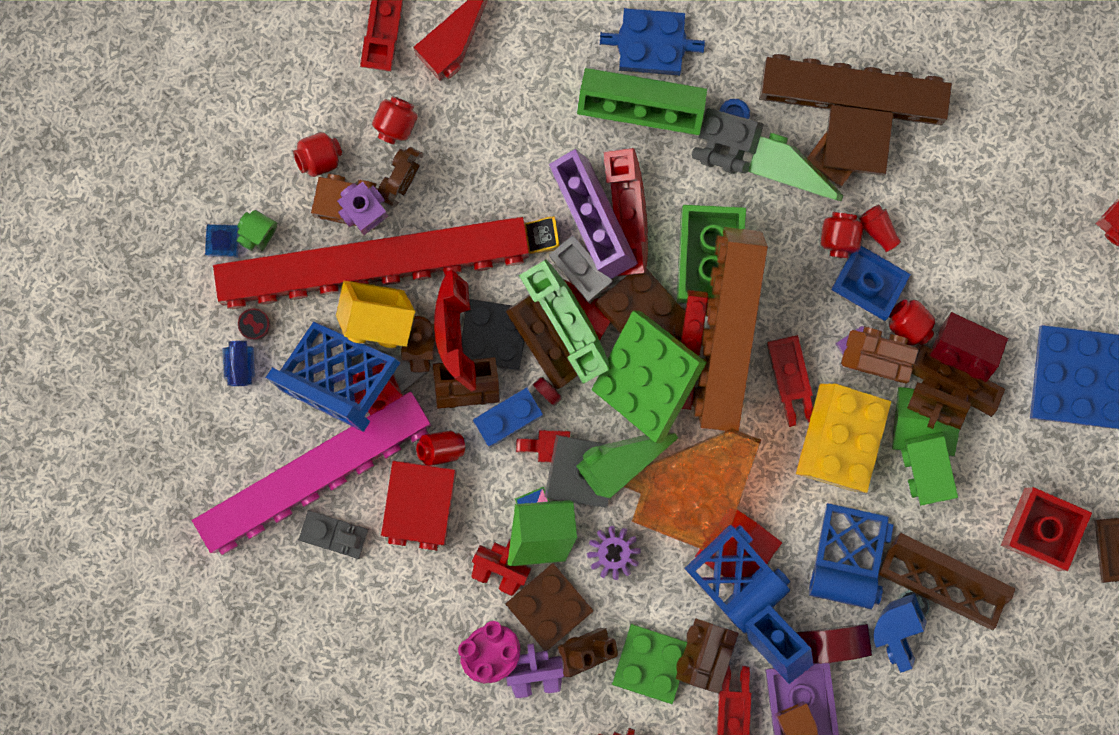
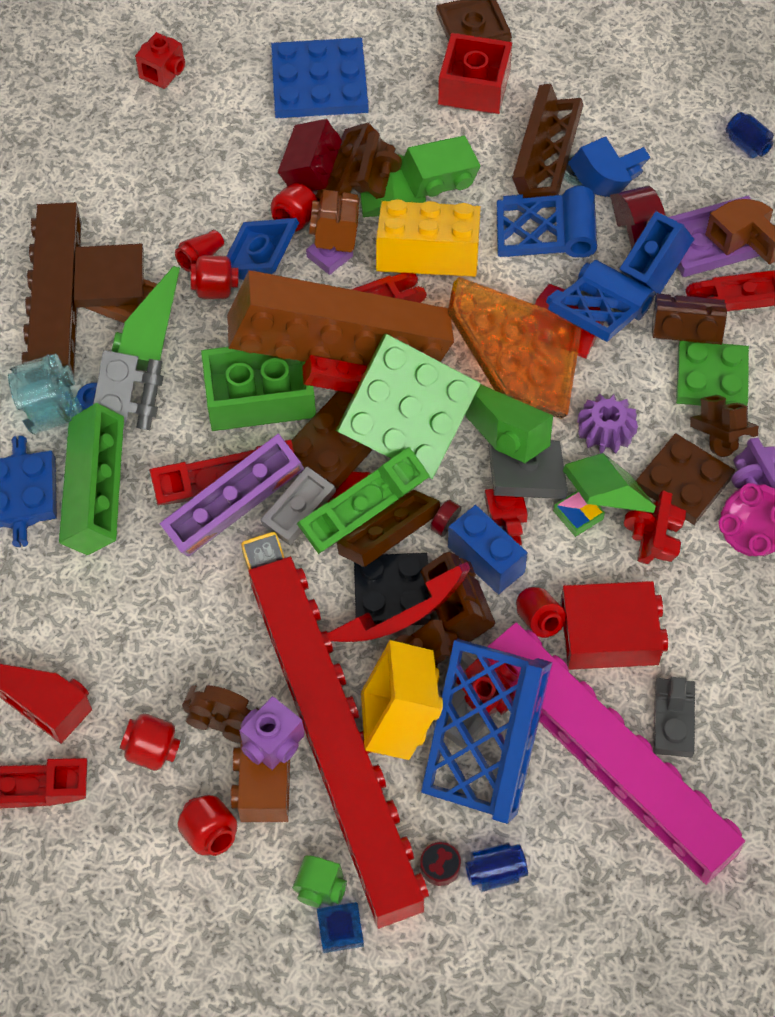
camera: 100 degrees left, 25 degrees down
(732, 69) = (44, 393): none -> clear light blue brick

